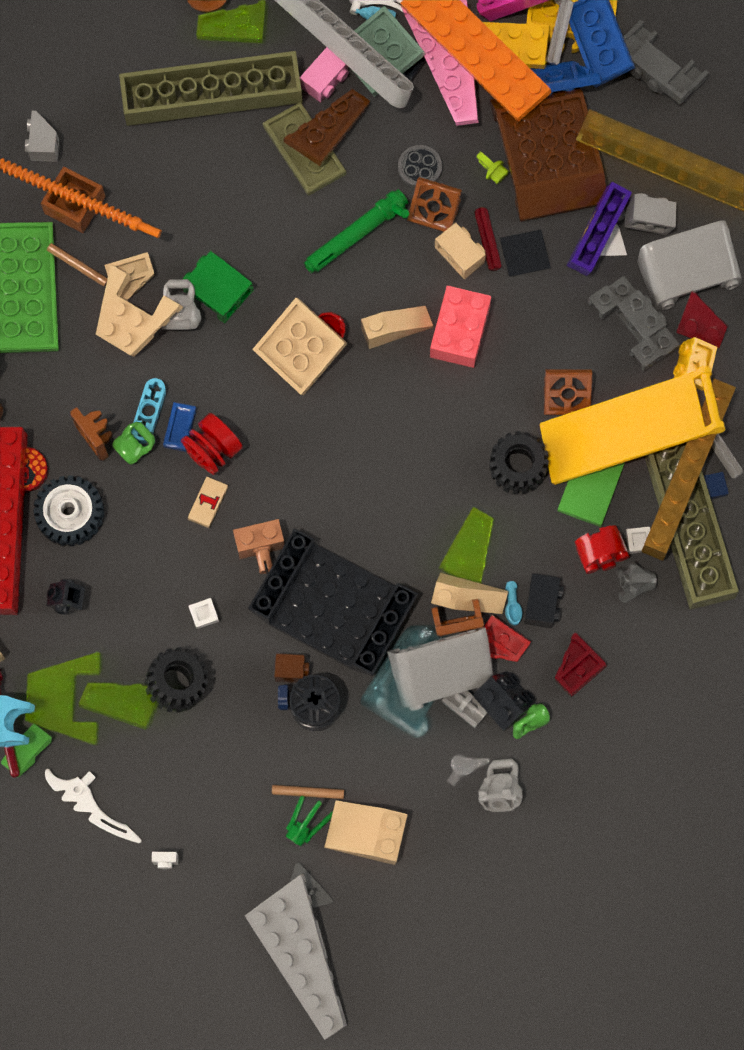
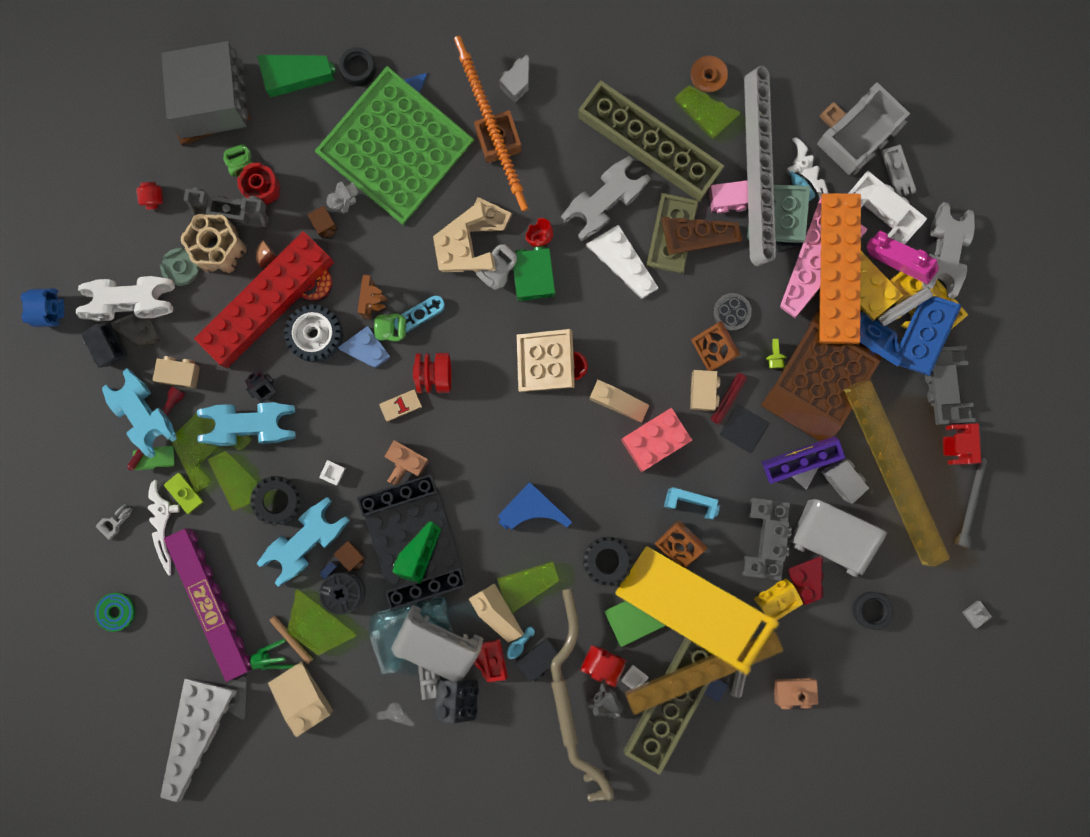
camera: 45 degrees right, 10 degrees up
(43, 823) = (123, 513): none -> light grey piece
(73, 652) = (231, 424): none -> medium azure piece
(75, 263) = (463, 180): medium nougat bar -> none
(84, 757) = (183, 493): none -> lime plate
(116, 906) = (104, 616): none -> green tile
(128, 481) = (365, 348): none -> medium blue wing
(165, 859) = (170, 601): white plate -> none
(179, 425) = (429, 341): blue tile -> none
(189, 247) = (540, 233): none -> red hair
(202, 829) = (208, 603): none -> magenta brick
(216, 187) = (594, 208): none -> light grey piece
(234, 714) = (292, 552): none -> medium azure piece
(279, 206) = (620, 256): none -> white wing
(318, 757) = (316, 626): none -> clear neon green wing
(349, 608) = (416, 555): none -> green slope
(383, 211) = (680, 320): green cylinder -> none
(406, 479) = (530, 504): none -> blue arch
(458, 624) = (462, 628): dark orange piece -> none
(501, 790) = (402, 751): light grey piece -> none
(535, 718) = (464, 729): bright green piece -> none
(539, 343) = (710, 503): none -> medium azure panel
(578, 666) = (521, 720): dark red wing -> none
(608, 617) = (565, 711): none -> dark tan piece
(721, 99) = (963, 444): none -> red panel

